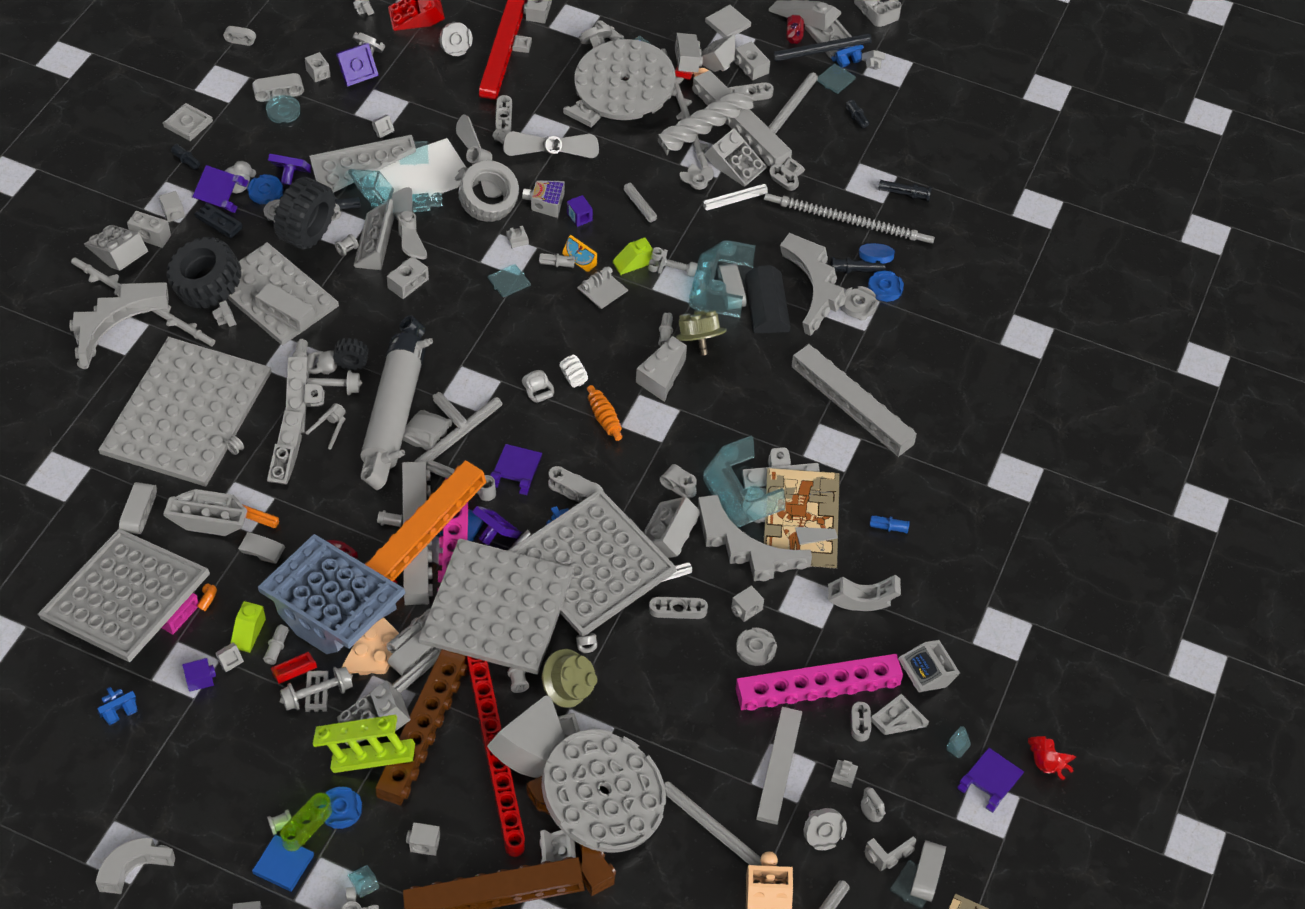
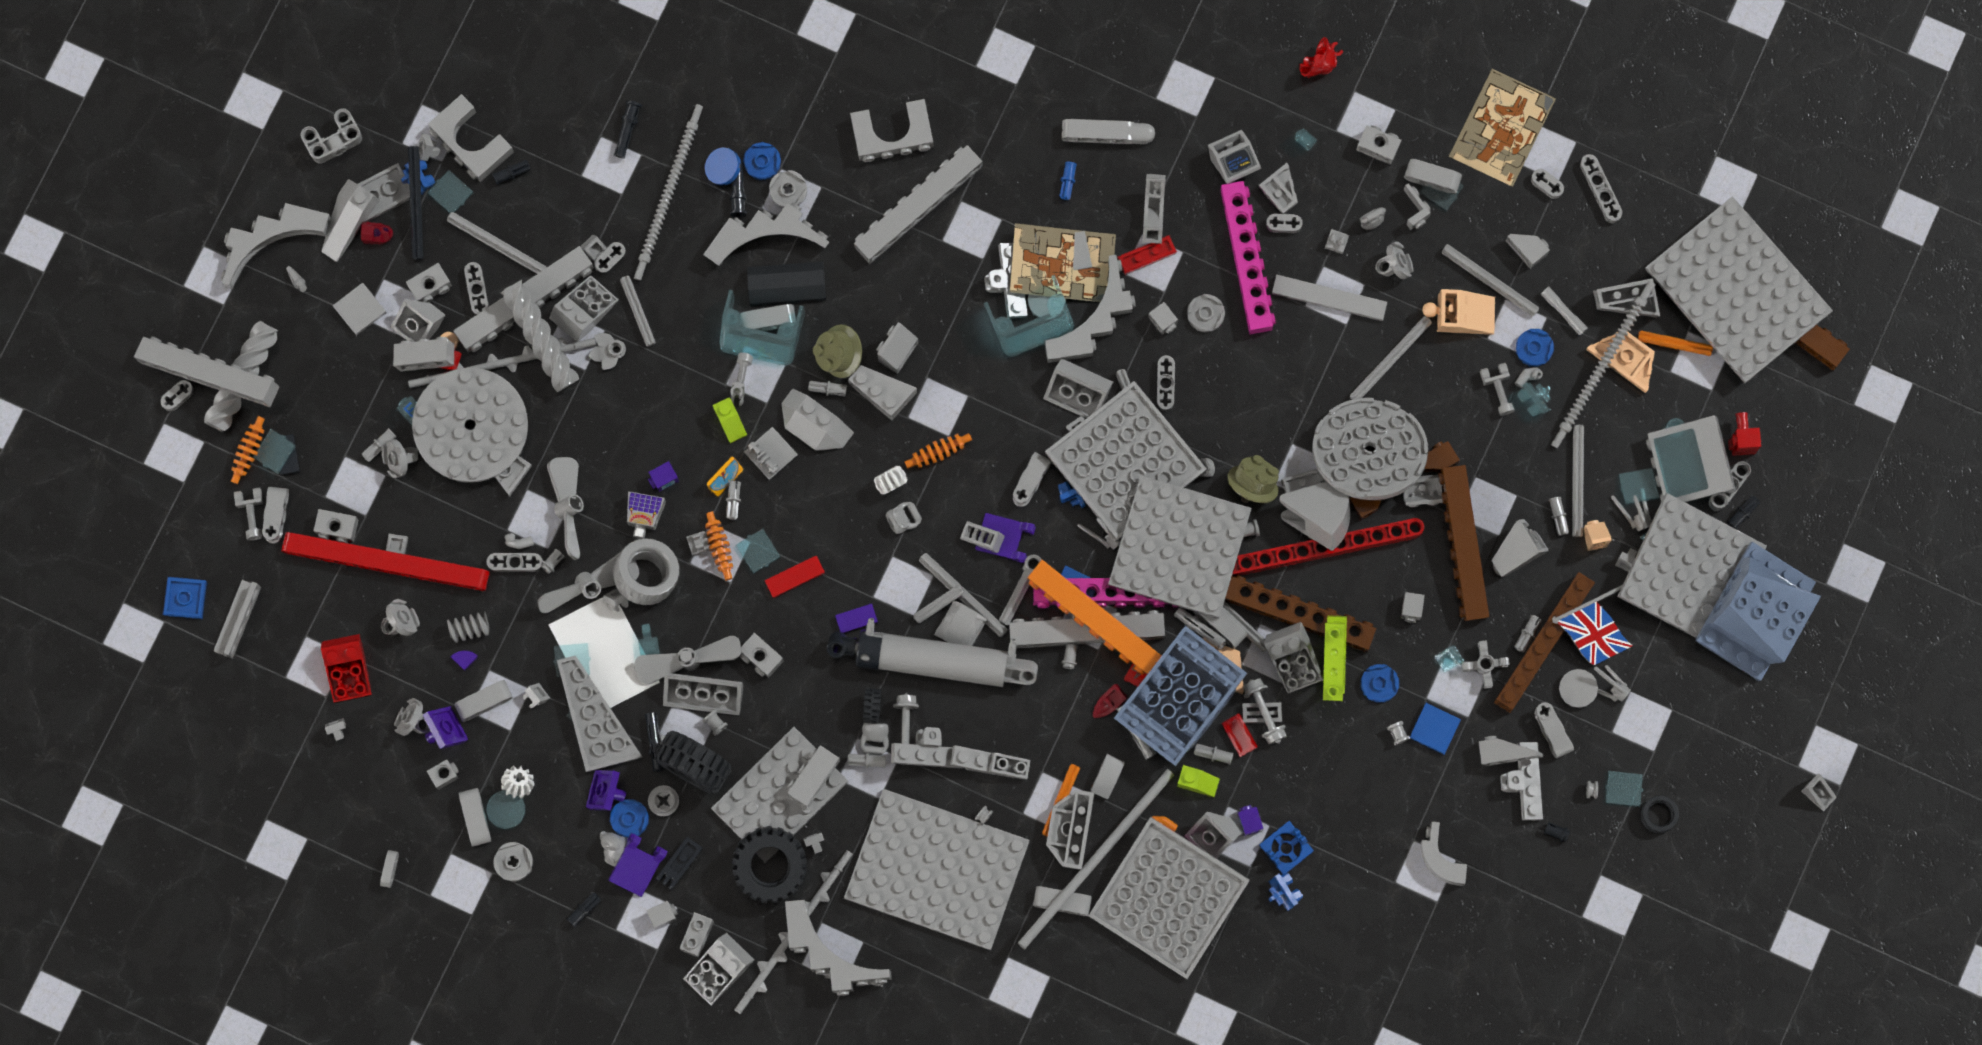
camera: 85 degrees left, 25 degrees up
(171, 722) = (1305, 851): none -> blue piece
(175, 532) = (1095, 859): none -> light grey piece
(187, 121) = (526, 914): light grey tile -> none
(188, 641) = (1214, 833): none -> light grey slope
(229, 657) = (1231, 795): light grey tile -> none
(231, 119) = (504, 856): none -> light grey plate
(302, 831) = (1406, 717): clear neon green beam -> none
(304, 111) = (517, 782): none -> white gear
(333, 415) = (943, 718): light grey plant -> none
(372, 186) = (642, 698): clear light blue slope -> none
(380, 93) = (483, 701): none -> light grey beam
(419, 84) = (464, 658): none -> dark purple tile
(440, 351) = (855, 618): none -> dark purple tile
(446, 82) = (468, 627): none -> light grey piece
(483, 305) = (794, 576): none -> red tile
(496, 525) = (1081, 552): dark purple tile -> none
(513, 249) = (719, 545): none -> orange piece
(515, 449) = (993, 541): none -> light grey slope
(521, 115) = (518, 543): none -> light grey arm
(630, 320) = (813, 423): none -> light grey wedge
(639, 201) = (646, 412): light grey axle -> none
(679, 481) = (1019, 380): light grey piece -> none
(706, 376) = (897, 348): none -> light grey slope
(816, 593) = (1146, 255): none -> red tile
(892, 72) = (479, 162): none -> light grey arch
(921, 399) = (871, 147): none -> light grey arch
(945, 558) = (1107, 131): none -> light grey piece
(964, 804) = (1385, 153): none -> light grey brick
(993, 776) = (1338, 112): dark purple flag -> none

